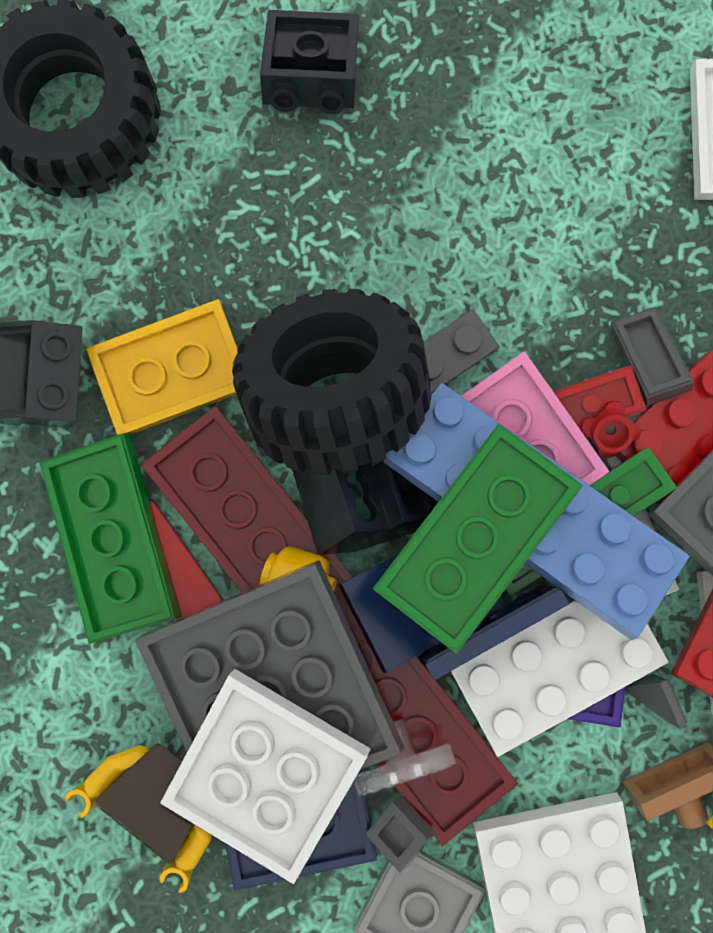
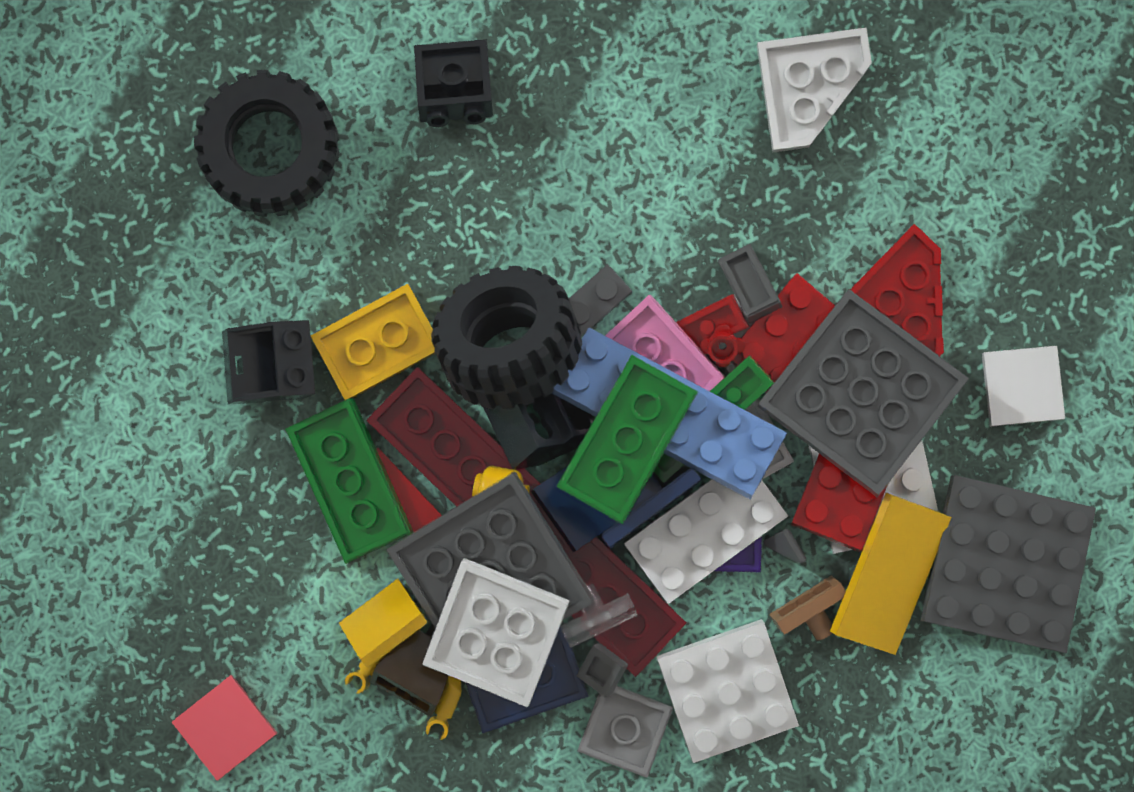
camera: 10 degrees left, 0 degrees up
(119, 736) = (382, 623): none -> yellow tile

